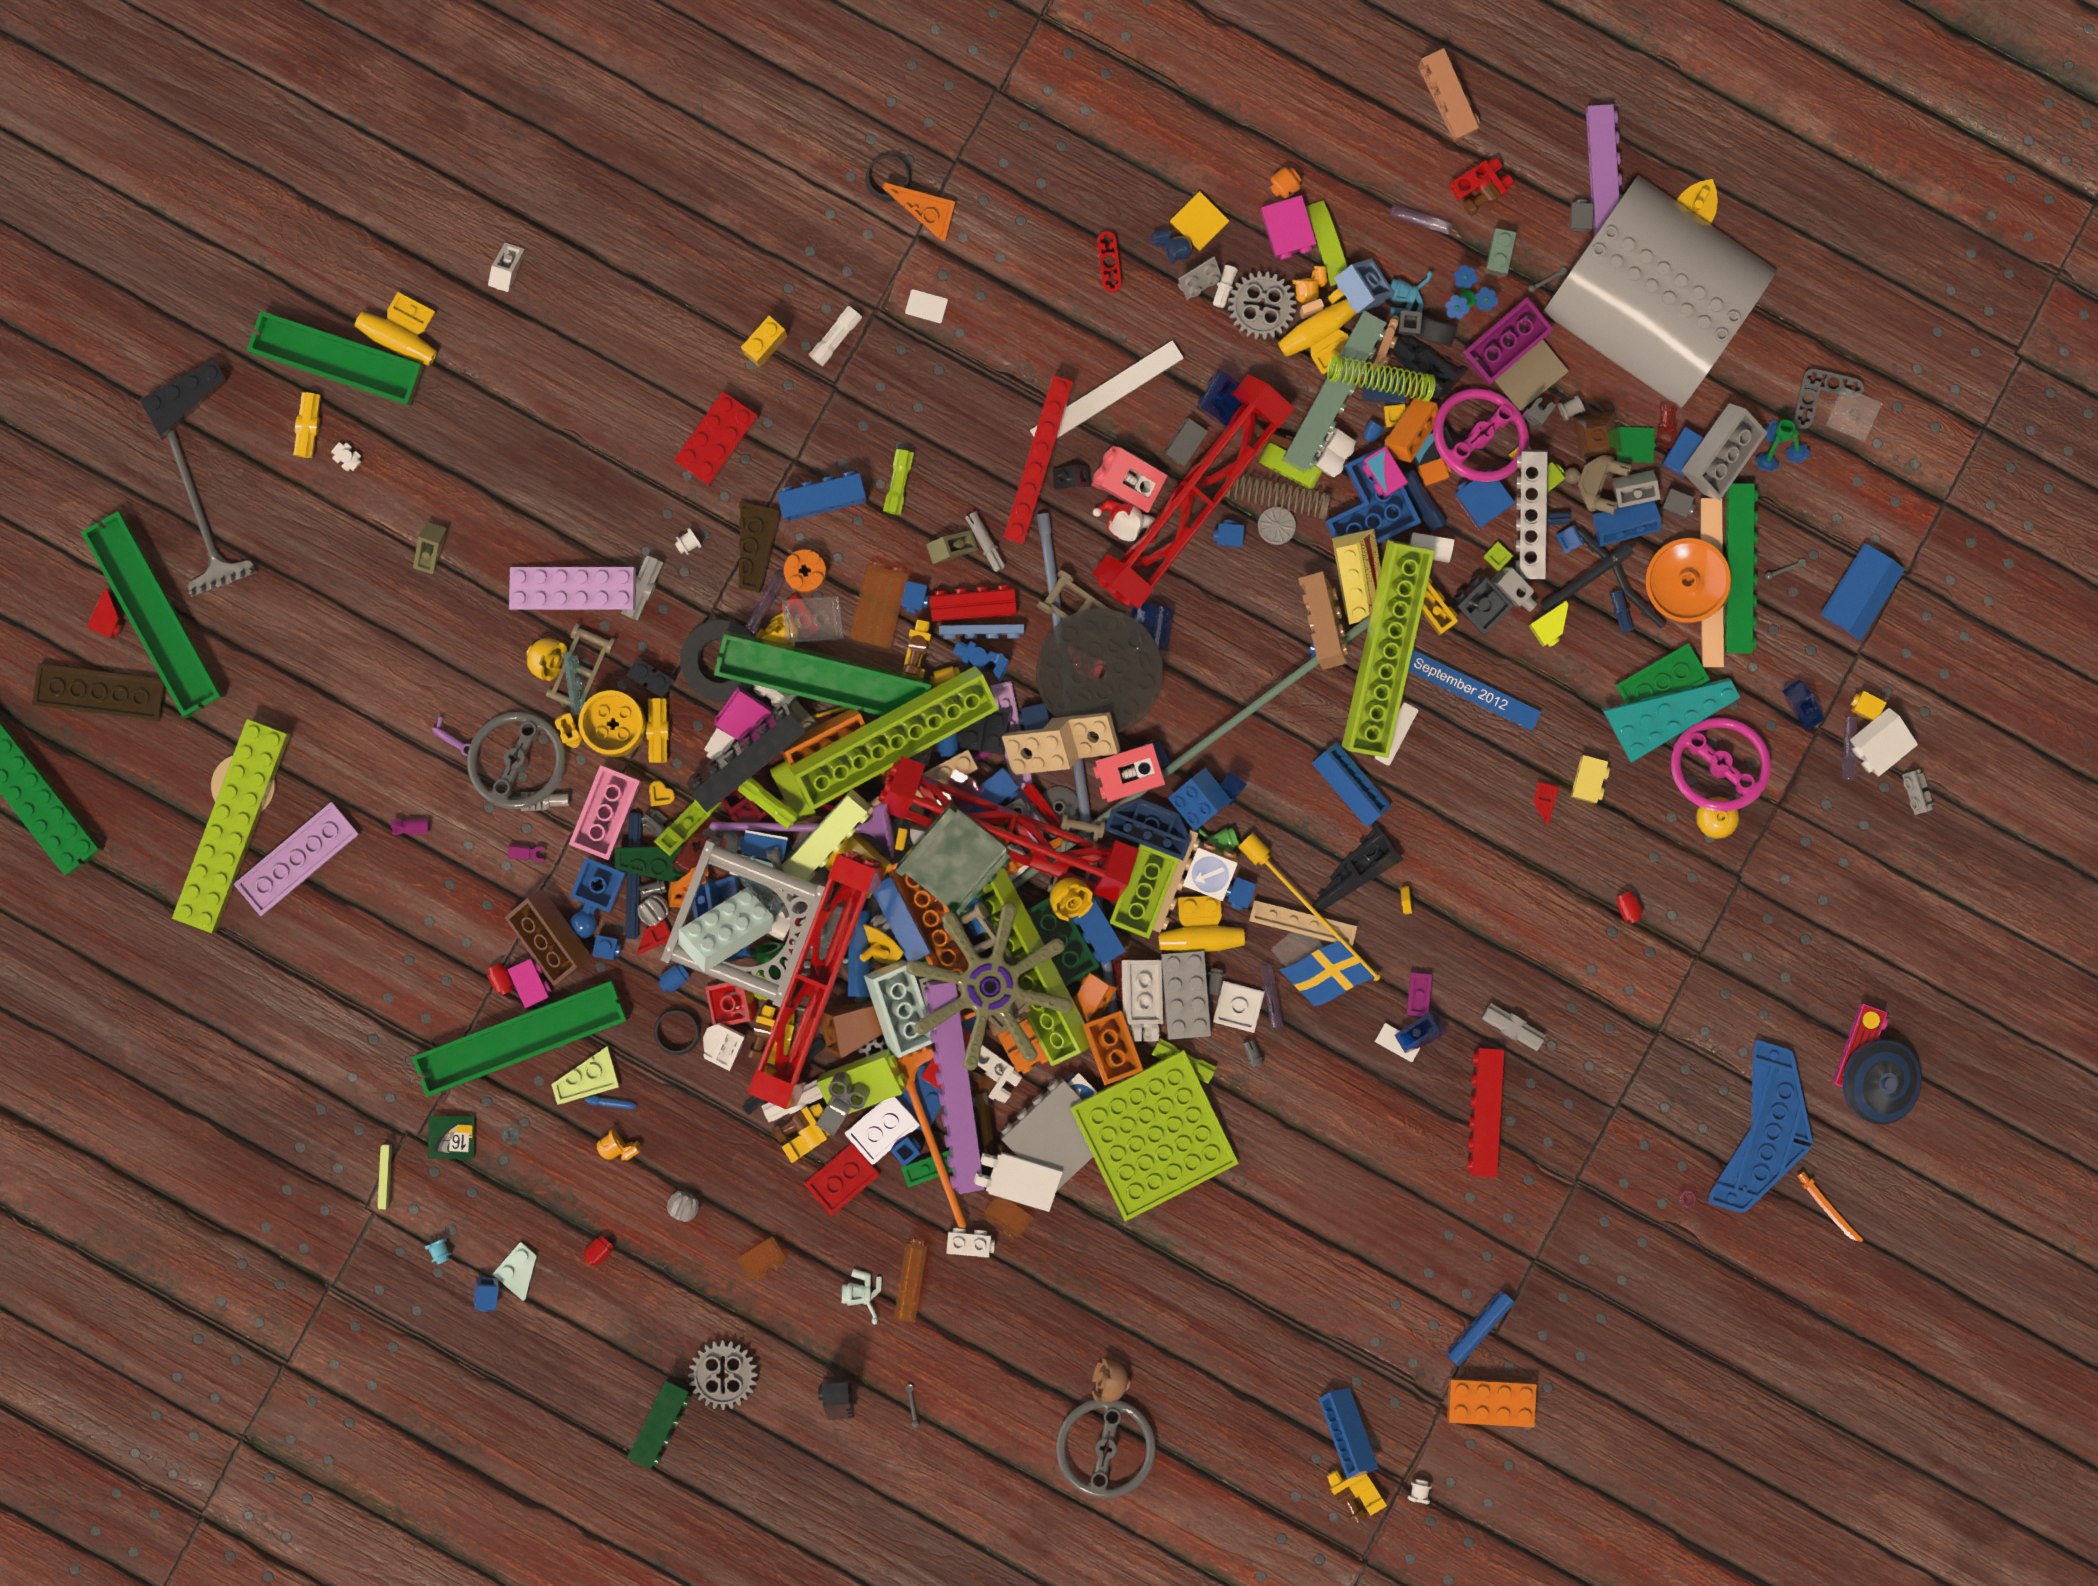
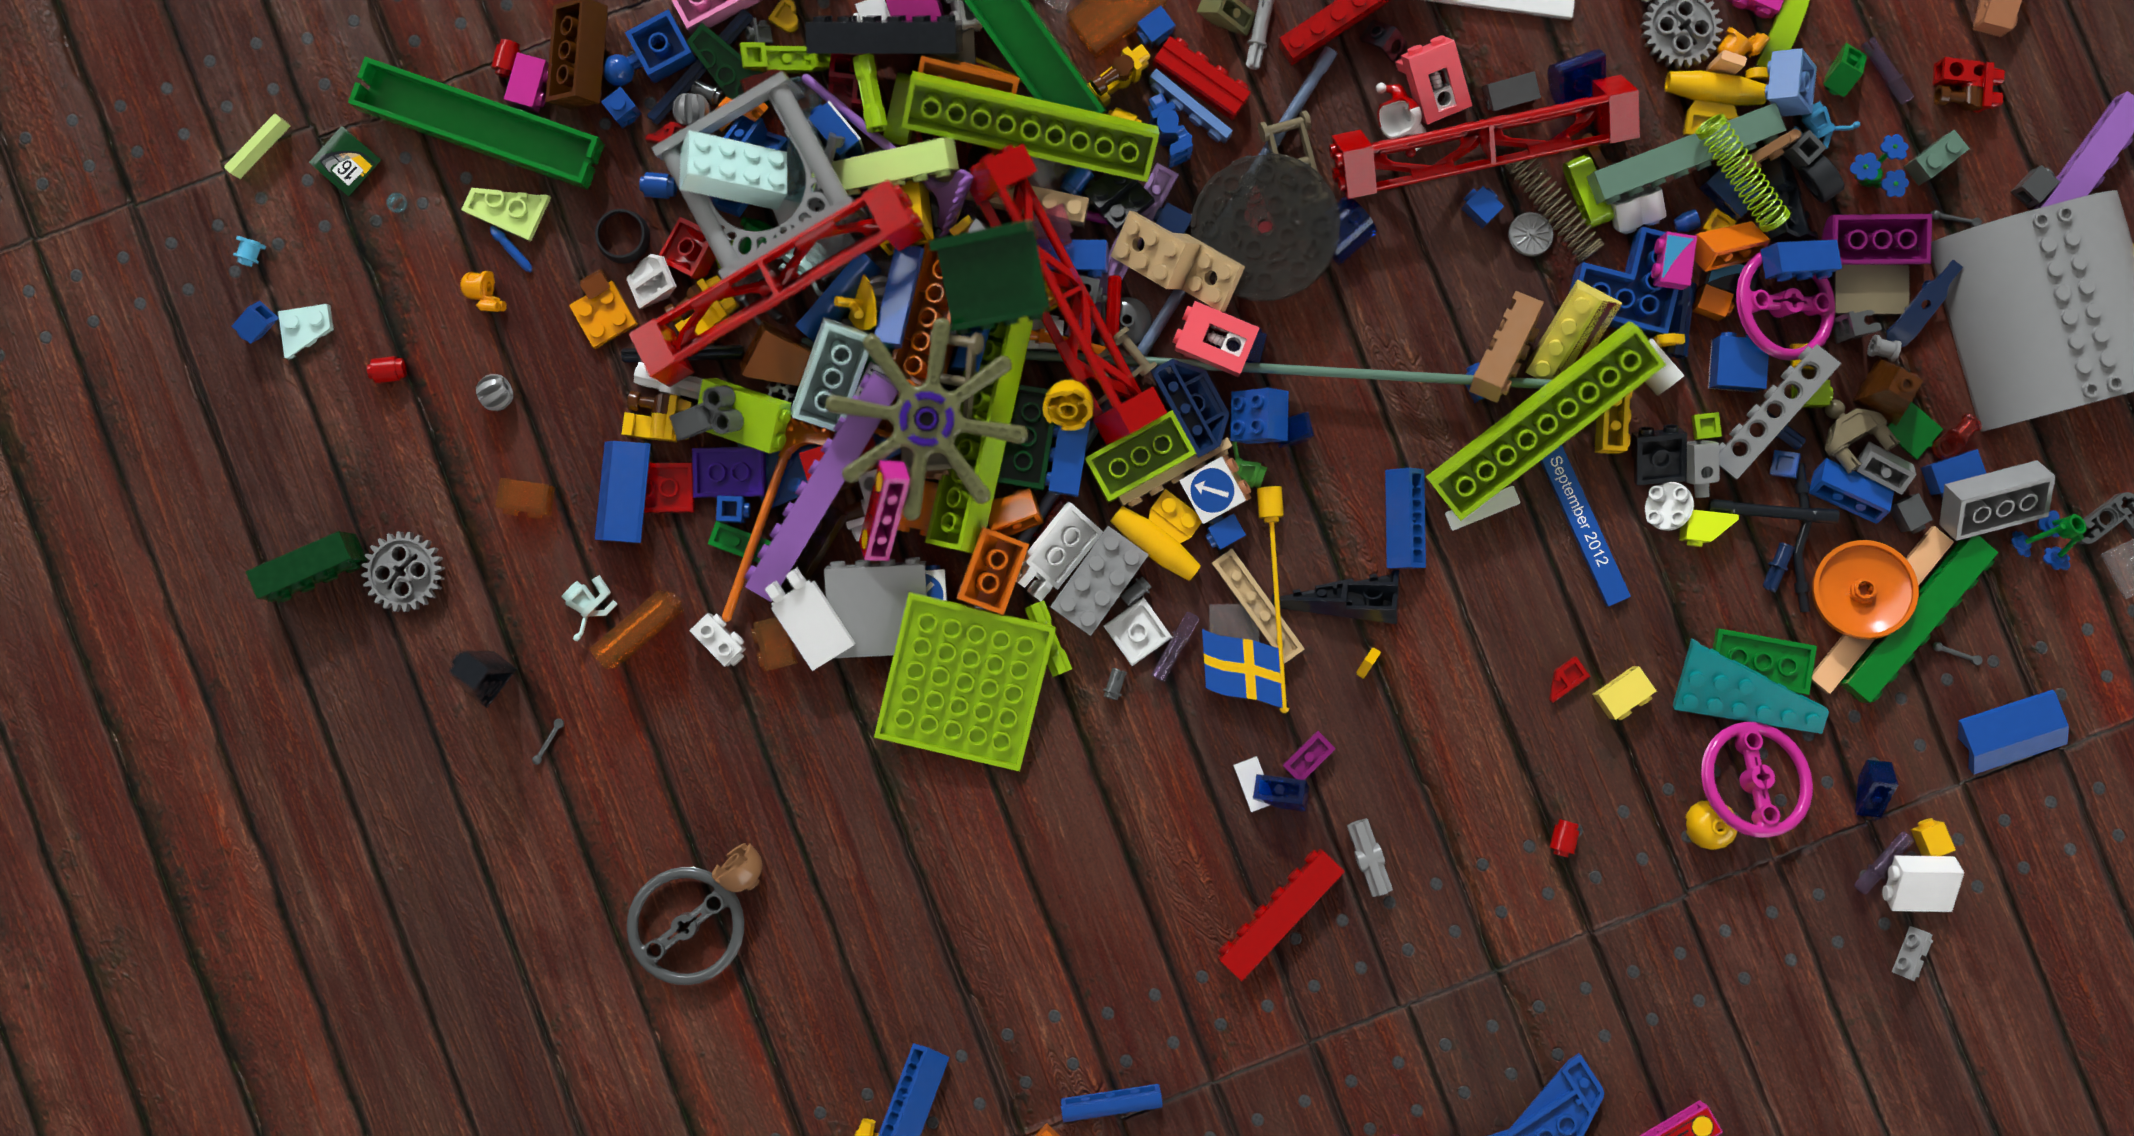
camera: 40 degrees right, 0 degrees up
(687, 1079) = (594, 284): none -> dark orange slope
(709, 1094) = (603, 316): none -> light orange plate
(823, 1200) = (622, 491): none -> blue slope
(1010, 1068) = (884, 510): none -> dark pink brick
(1392, 243) = (1845, 70): none -> green slope
(1420, 528) = (1670, 339): none -> yellow tile
(1467, 401) = (1801, 260): none -> blue brick
(1516, 632) = (1669, 506): none -> white dish
(1572, 371) = (1915, 316): none -> dark blue piece

